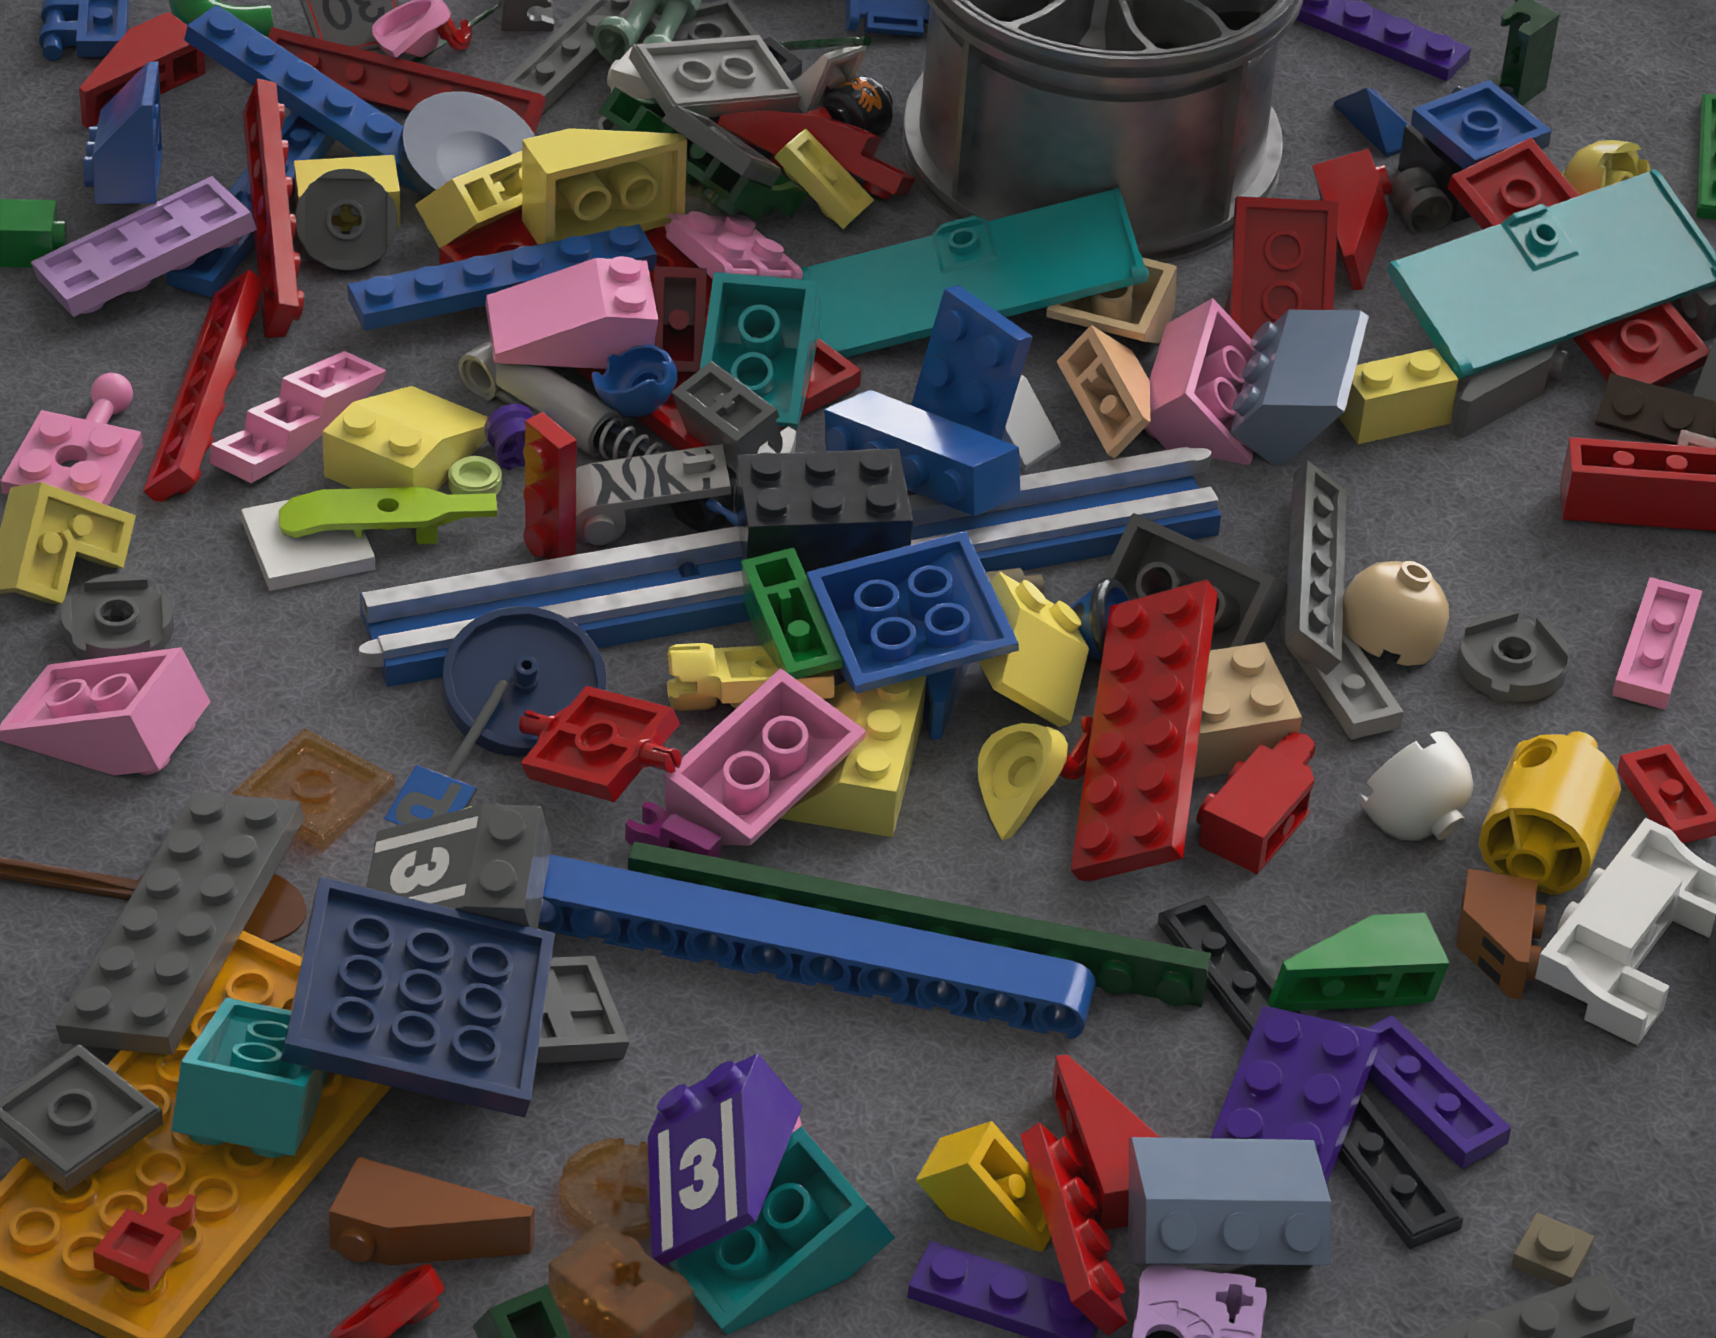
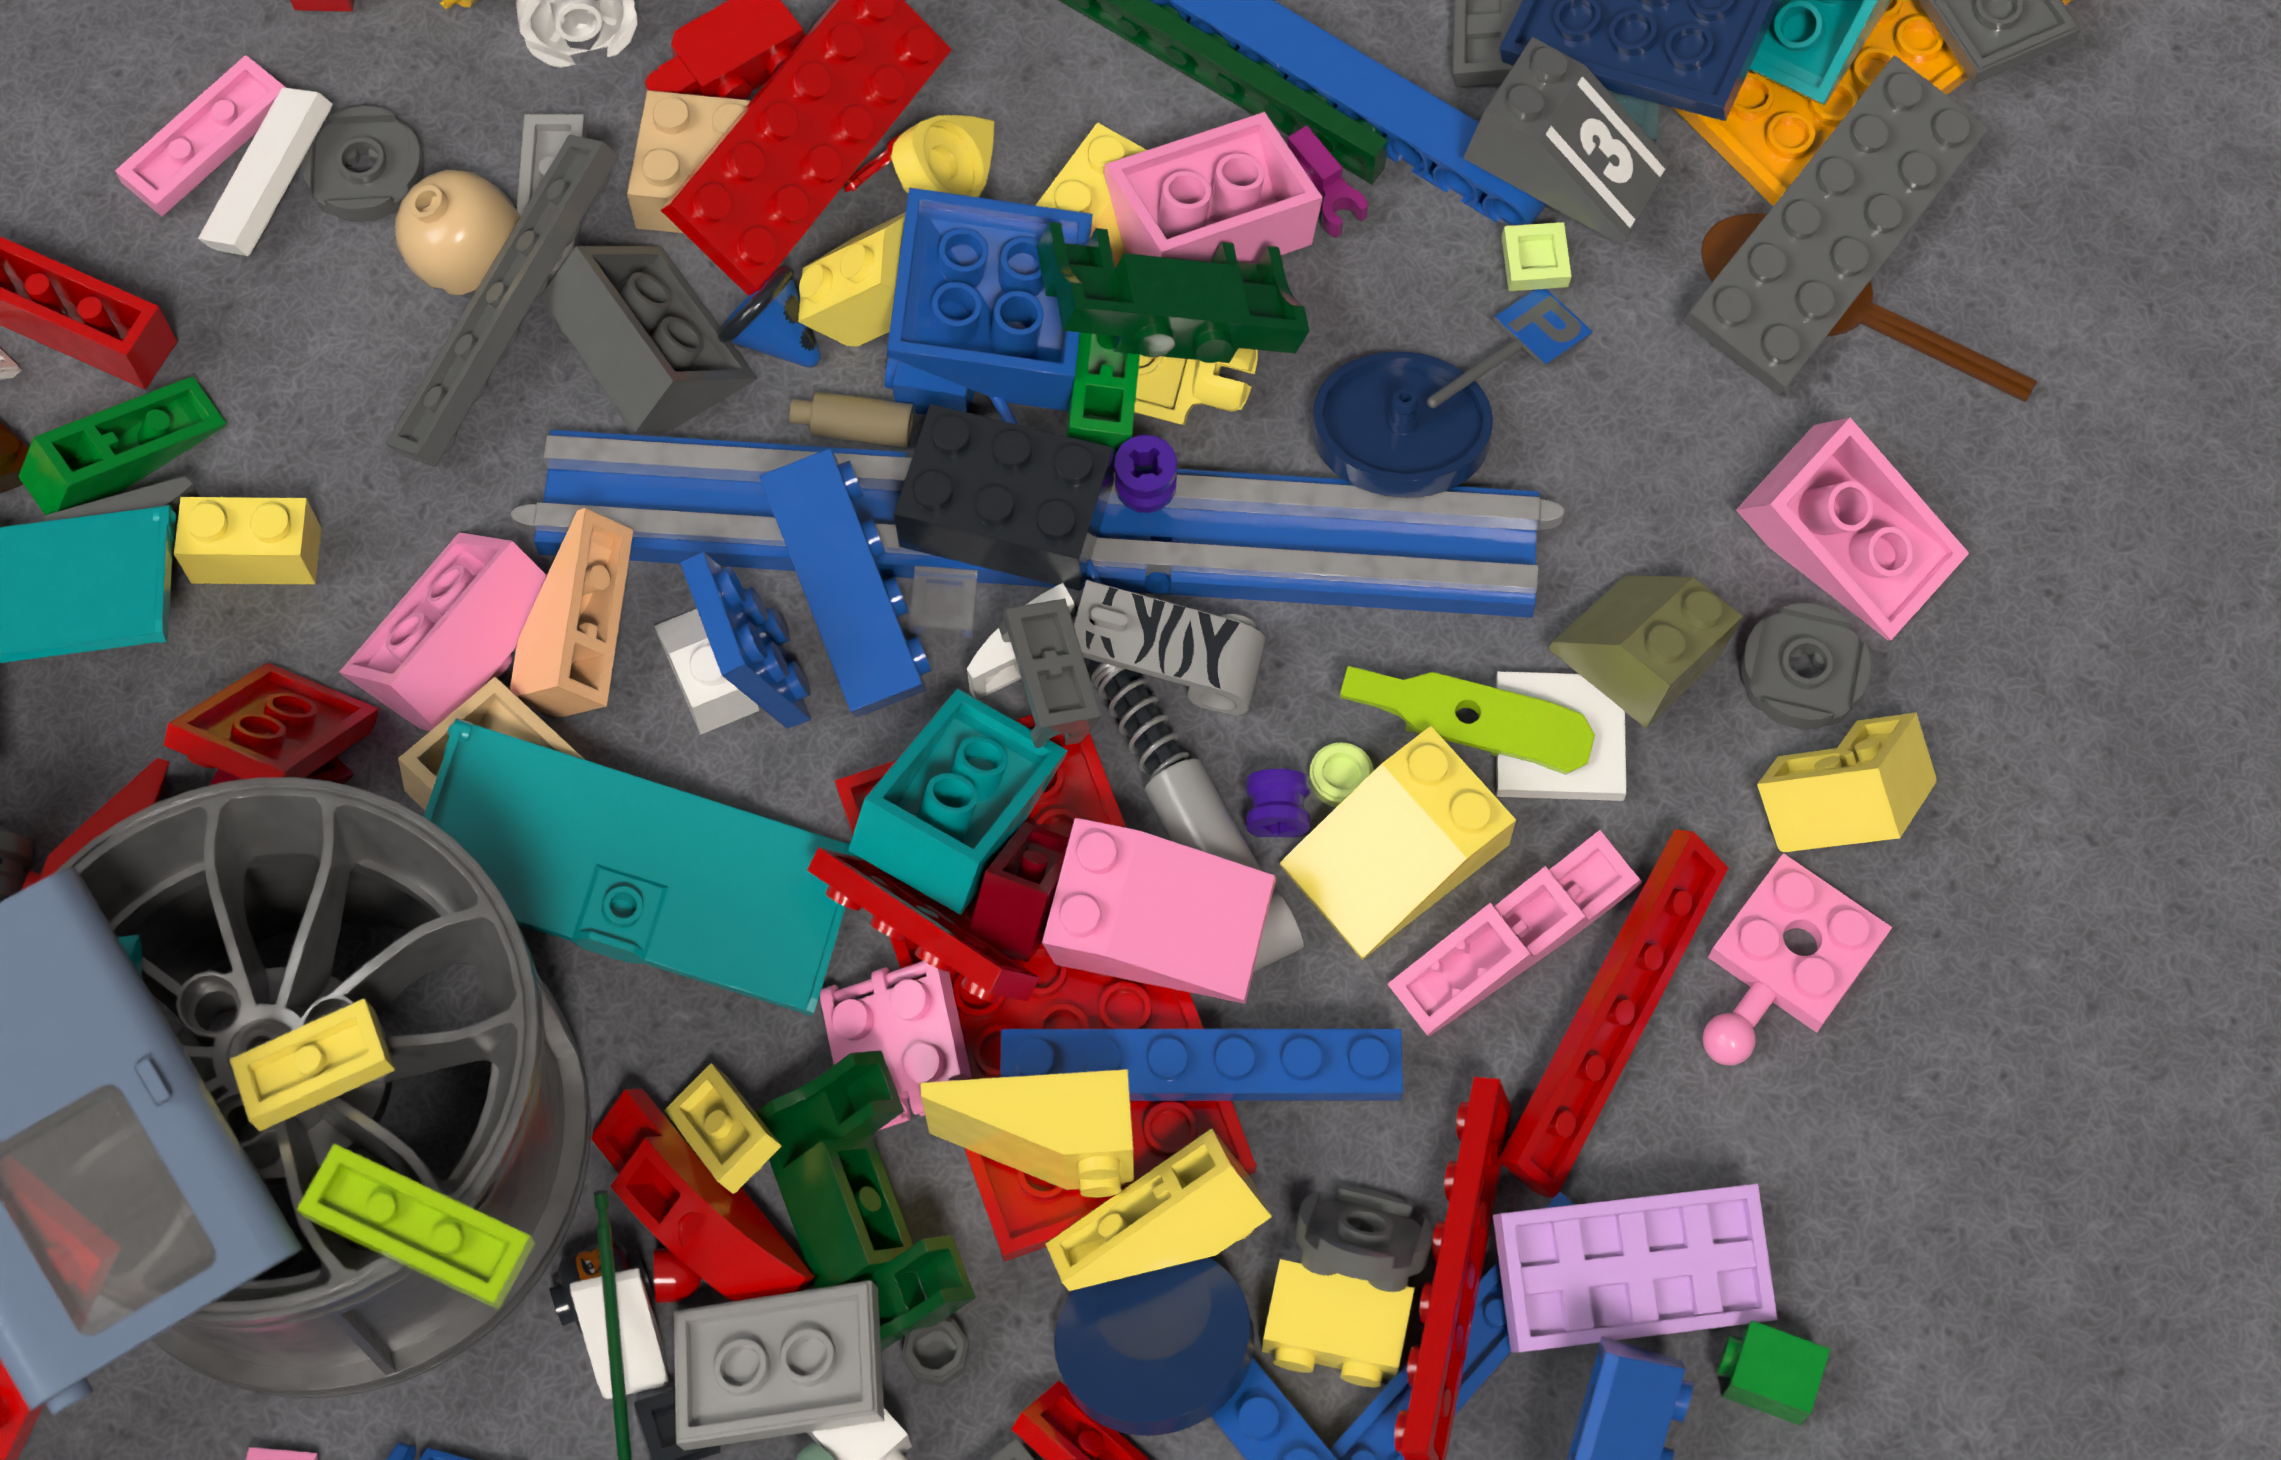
camera: 155 degrees left, 25 degrees up
(258, 582) = (1648, 641): none -> olive slope
(327, 782) = (1655, 381): clear orange tile -> none
(549, 488) = (1299, 608): red plate -> none
(599, 743) = (1364, 278): red plate -> none
(637, 381) = (1125, 785): blue hair -> none
(718, 564) = (1145, 489): none -> dark purple wheel
(720, 247) = (939, 938): none -> red plate
(722, 145) = (868, 1095): dark grey tile -> none
(747, 618) = (1172, 303): none -> dark green bracket
(1297, 380) = (352, 564): sand blue slope -> none
(1538, 431) = (117, 446): none -> green slope
(1583, 621) = (265, 171): none -> white tile

